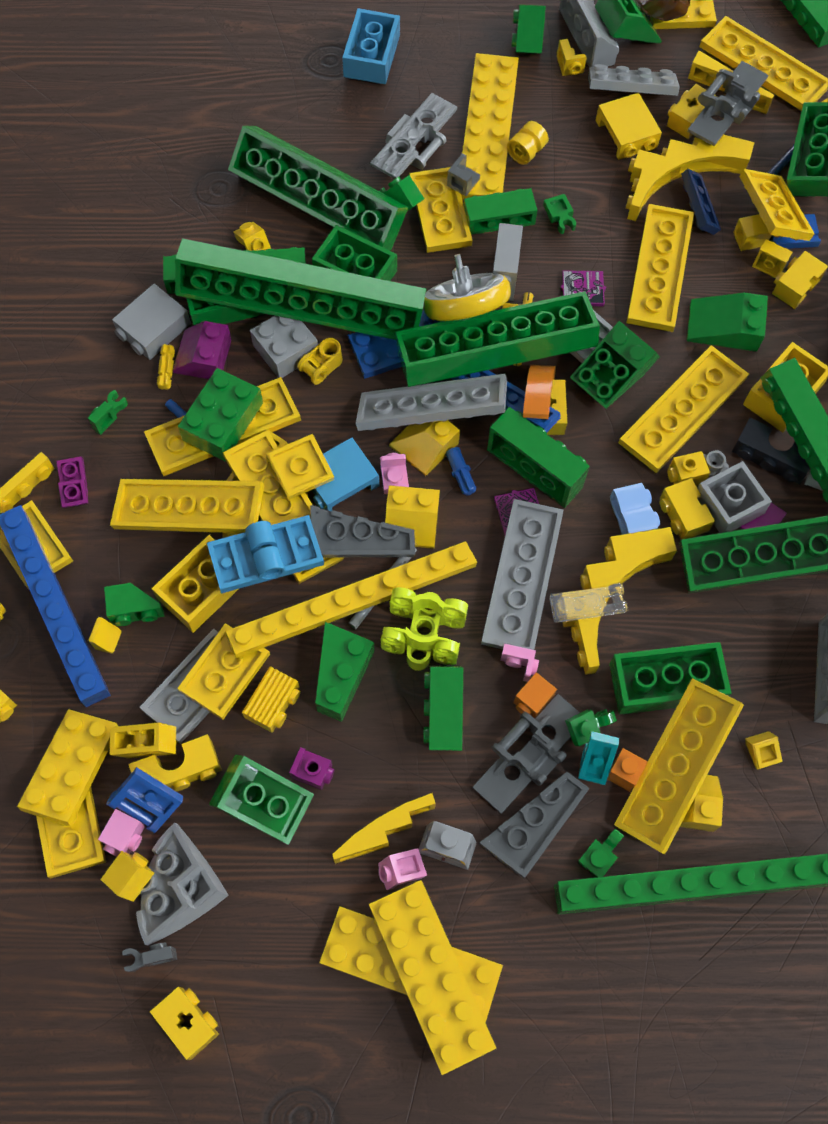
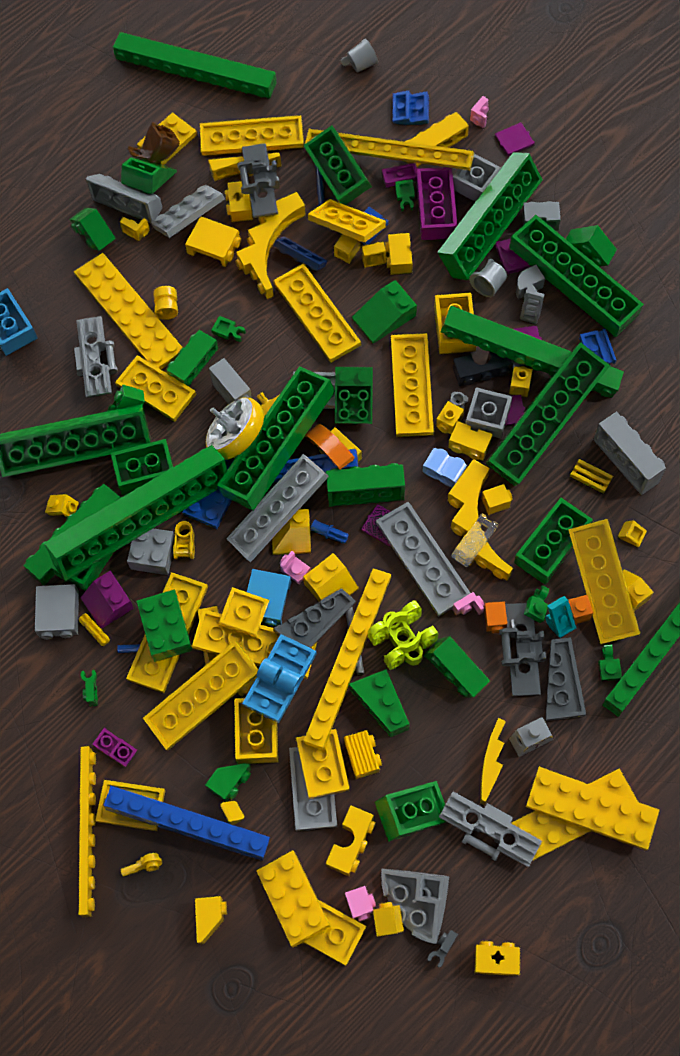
camera: 40 degrees left, 0 degrees up
(142, 740) = (319, 843): yellow brick -> none
(148, 794) = (356, 866): blue plate -> none
(315, 779) = (419, 775): magenta brick -> none
(320, 890) = (494, 824): none -> light grey piece
(401, 868) = (521, 772): bright pink bracket -> none
(460, 177) = (151, 357): dark grey panel -> none
(588, 281) = (284, 363): piece -> none
(655, 587) = (496, 499): none -> yellow brick
(786, 647) = (592, 473): none -> yellow tile
(799, 498) = (520, 381): none -> yellow brick

